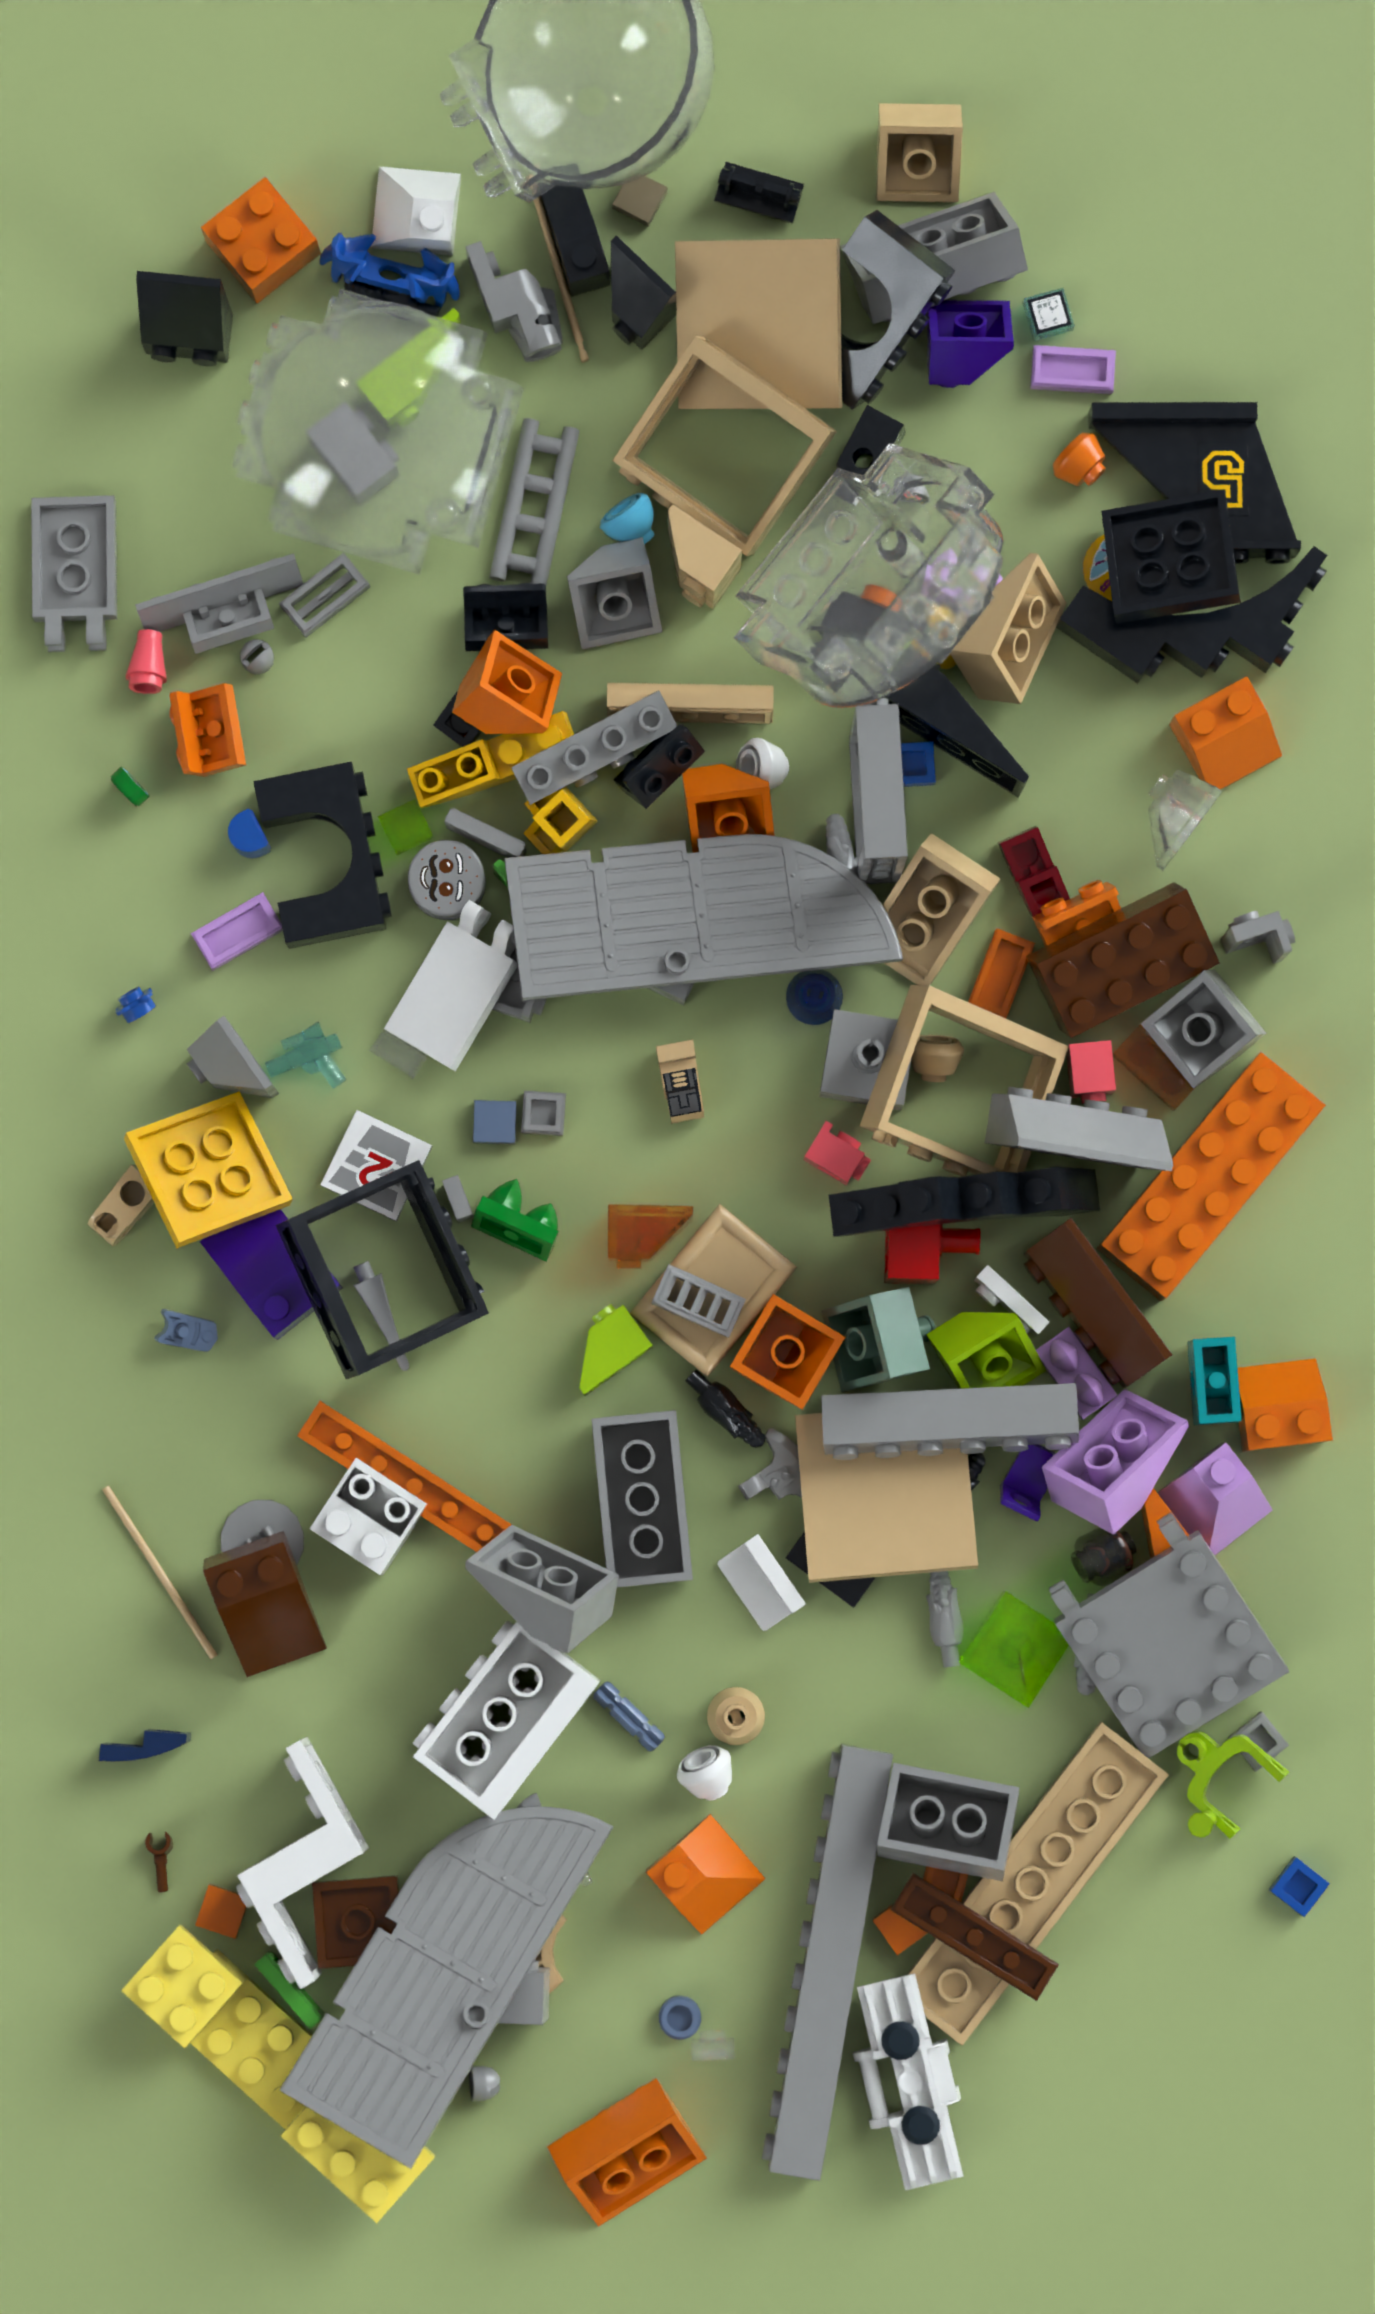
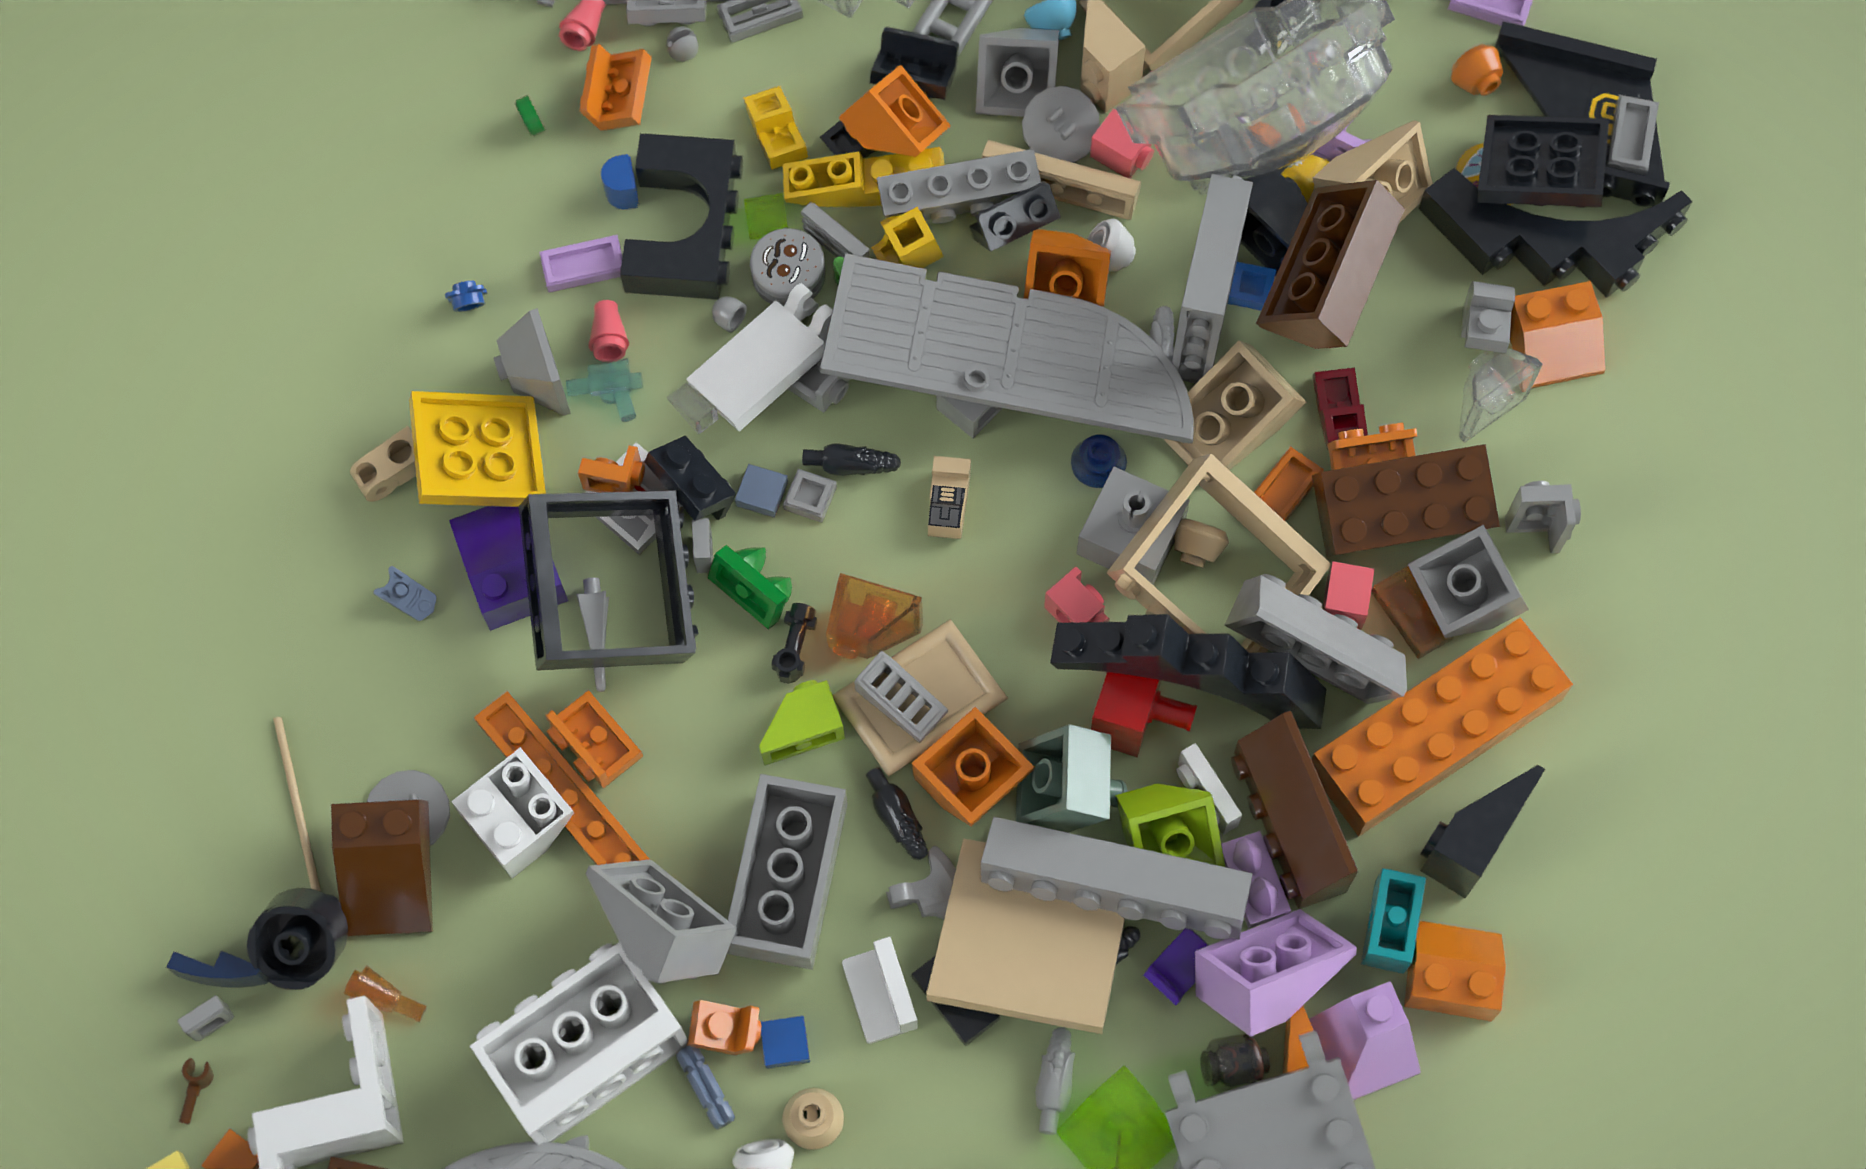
camera: 20 degrees right, 15 degrees down
(150, 1793) = (206, 1018): none -> light grey tile
(212, 1697) = (298, 938): none -> black brick
(290, 1002) = (608, 336): none -> coral cone
(296, 1722) = (382, 994): none -> clear orange cone
(342, 1159) = (609, 476): none -> orange bracket
(383, 725) = (775, 127): none -> yellow slope
(402, 945) = (728, 313): none -> light grey hinge
(418, 1422) = (594, 738): none -> orange bracket
(426, 1137) = (694, 479): none -> black bracket
(571, 1066) = (850, 460): none -> black piece
(577, 1292) = (787, 660): none -> black bar
(630, 1660) = (724, 1028): none -> orange bracket
(674, 642) = (1060, 123): none -> light grey piece
(688, 1654) = (784, 1042): none -> blue tile
(730, 653) = (1115, 149): none -> coral brick
(992, 749) = (1331, 264): none -> reddish brown slope
(1155, 743) = (1487, 316): none -> light grey brick
(1251, 495) = (1632, 134): none -> light grey tile
(1268, 1285) = (1465, 846): none -> black slope

